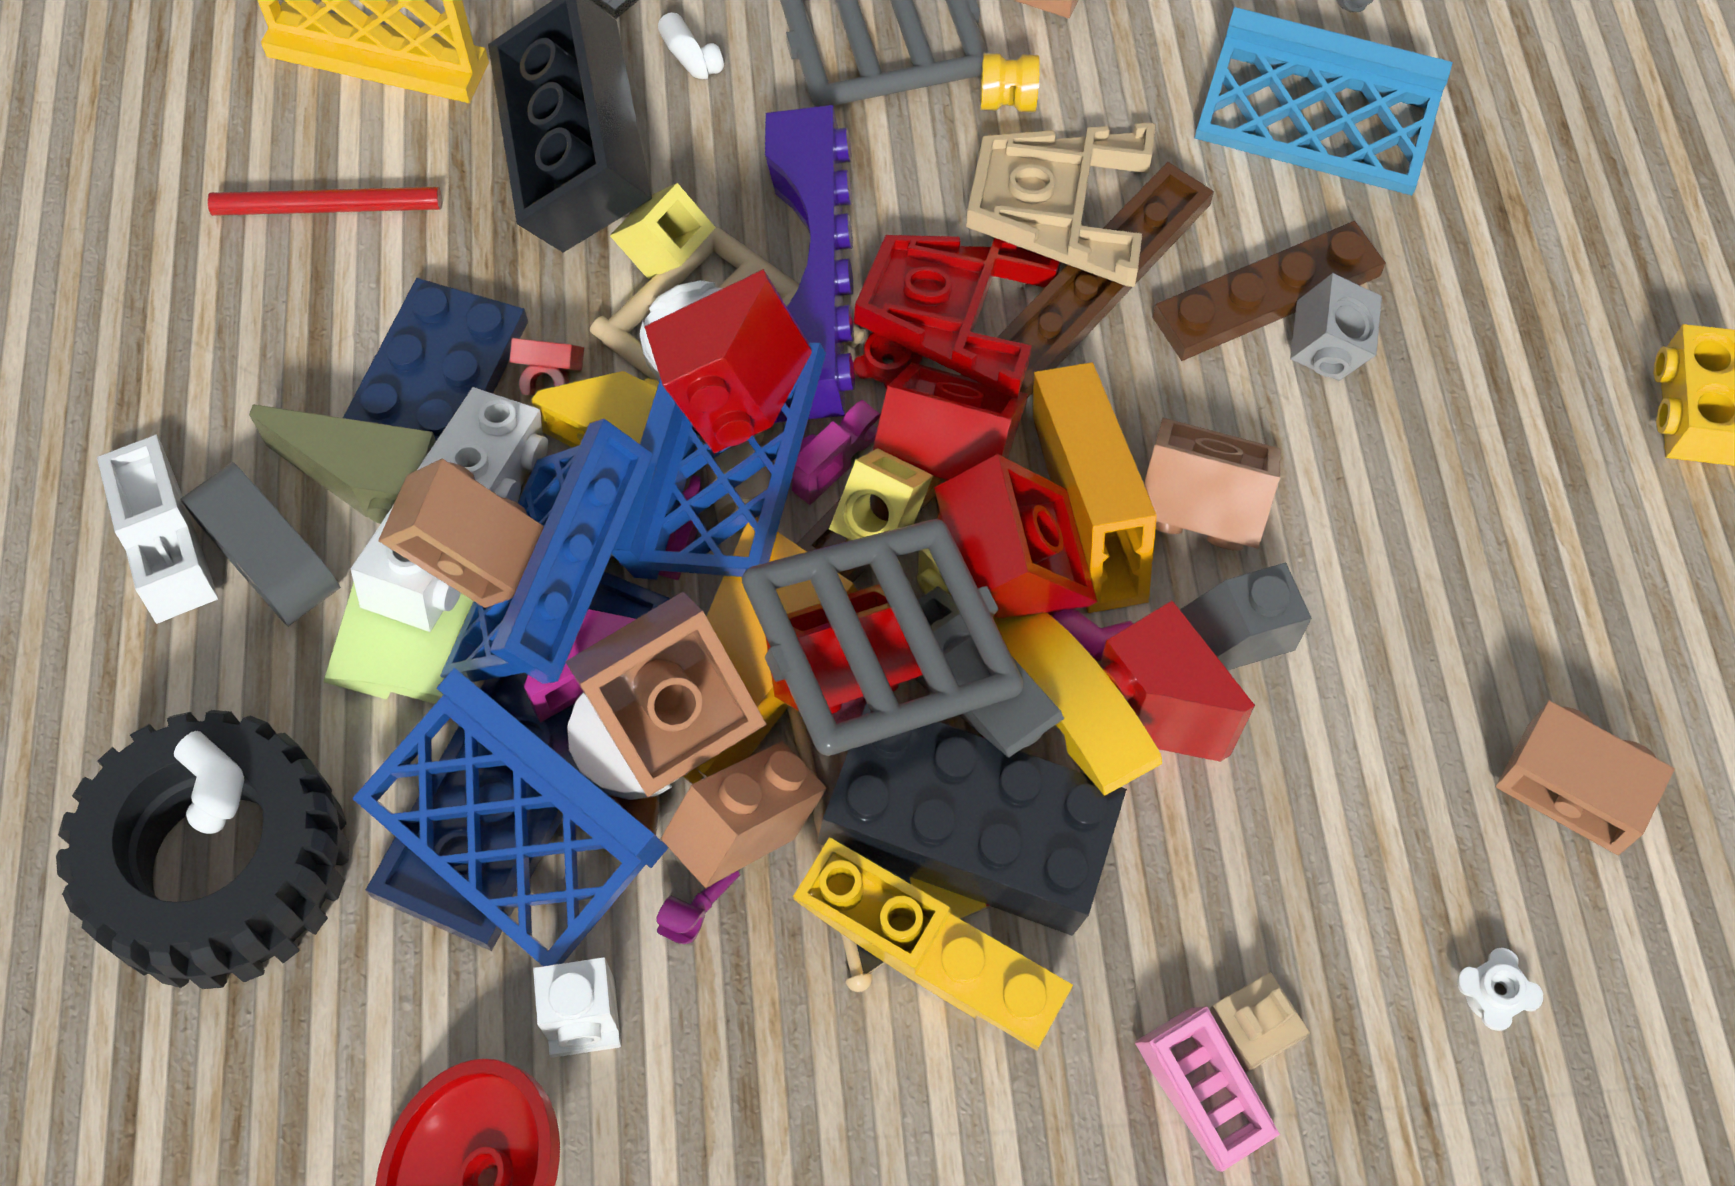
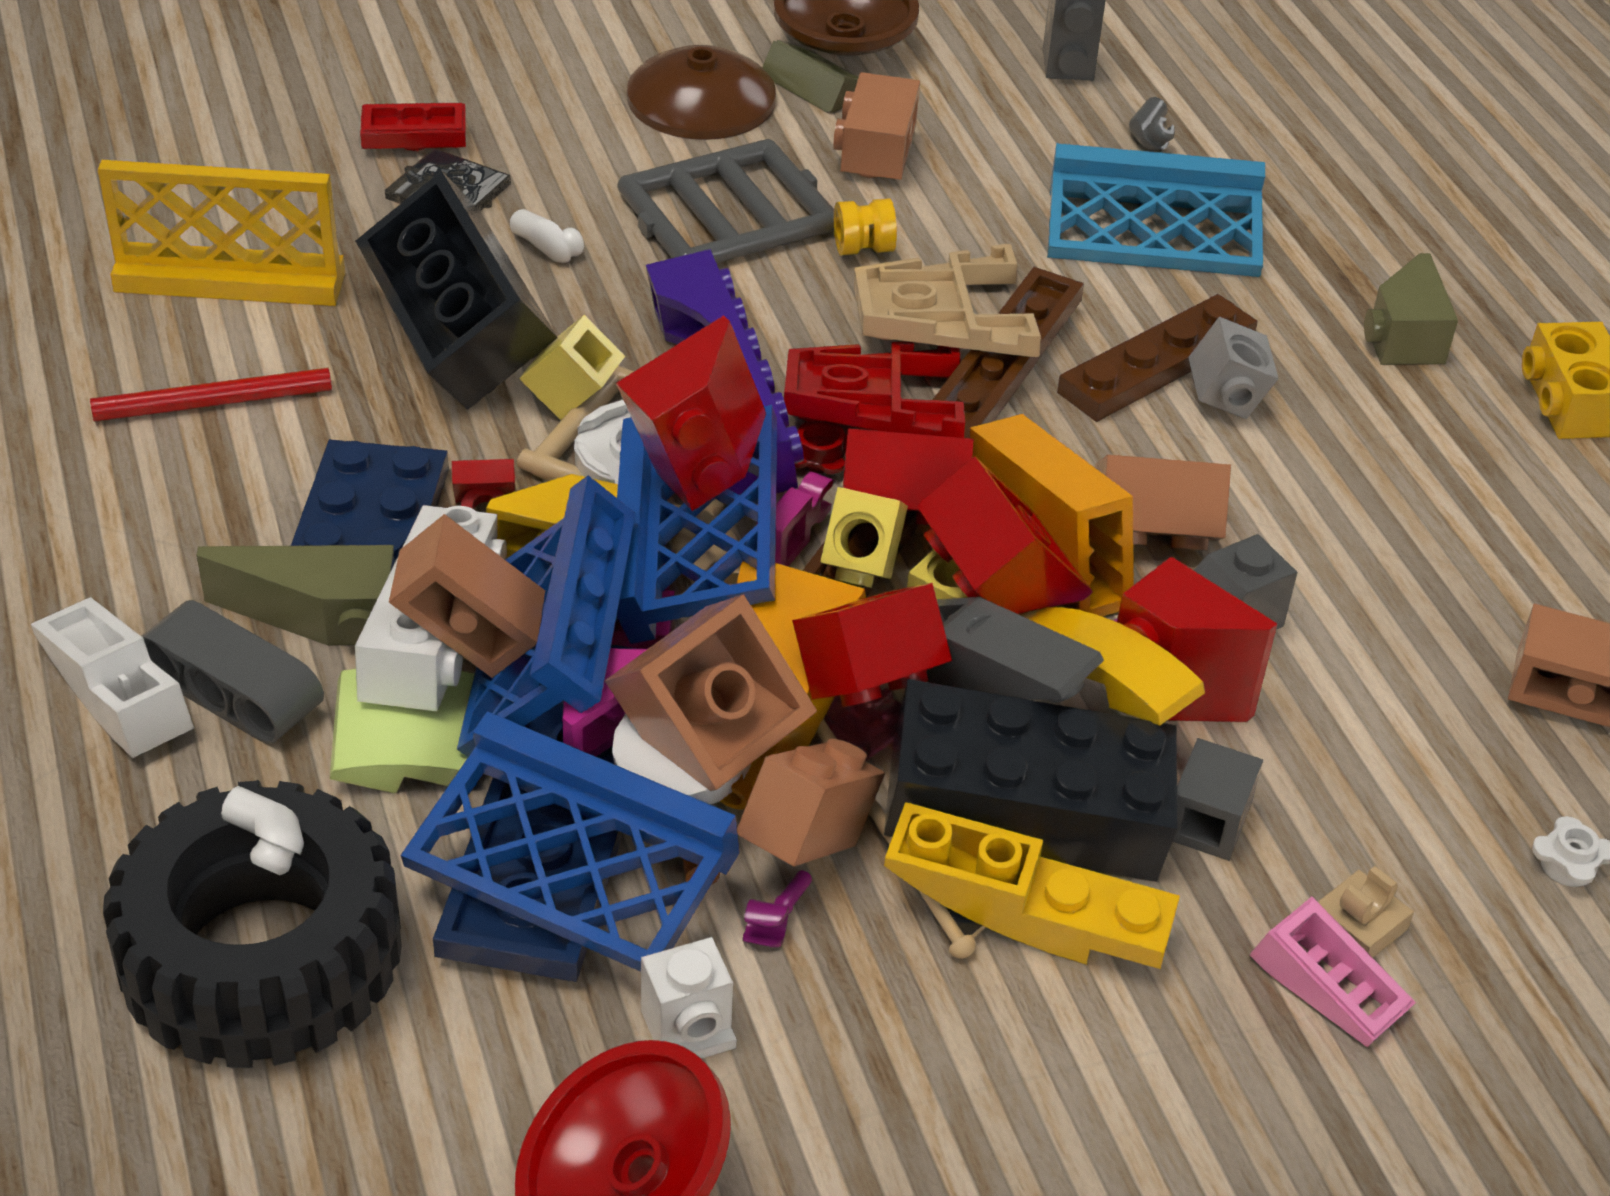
camera: 15 degrees left, 20 degrees down
(887, 717) = (939, 659): dark grey bar -> none
(1150, 861) = (1215, 798): none -> dark grey brick
(1553, 282) = (1412, 316): none -> olive slope

